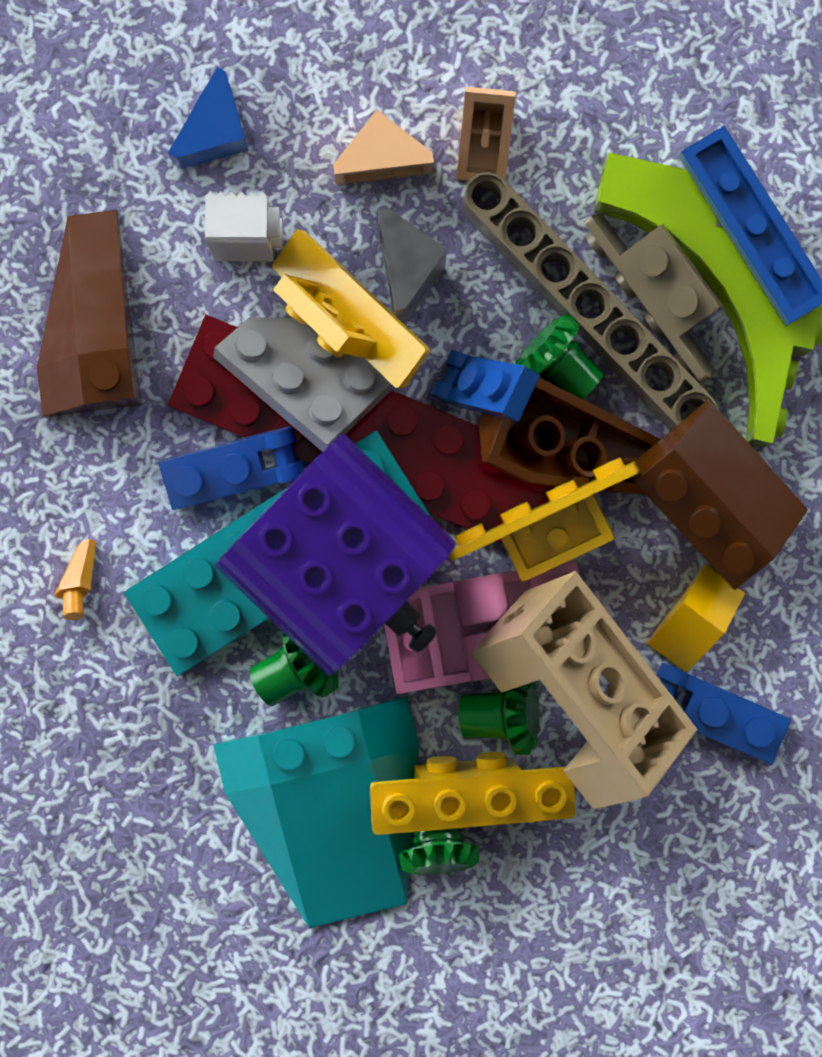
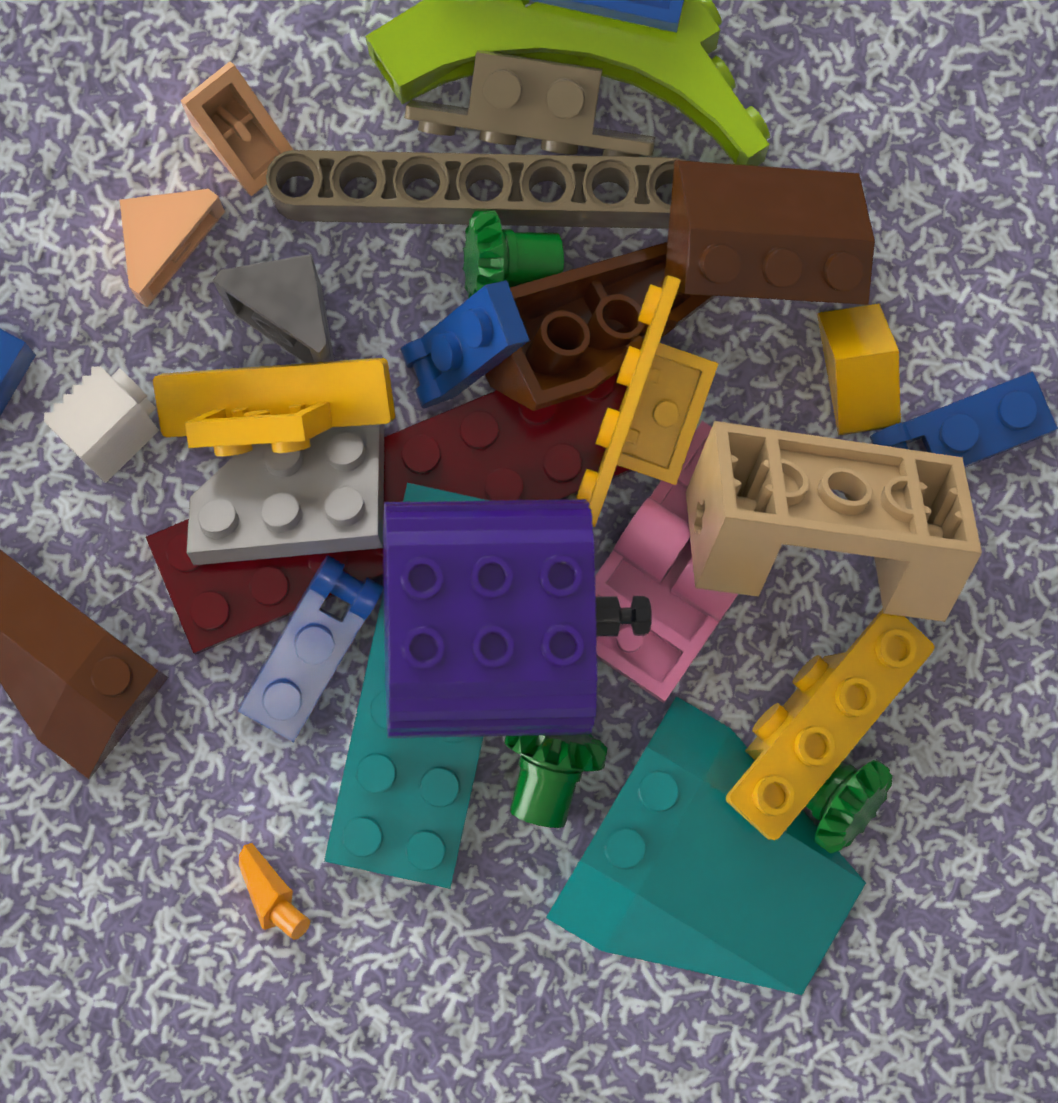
camera: 40 degrees left, 5 degrees down
(502, 715) = (778, 623): green gear -> none

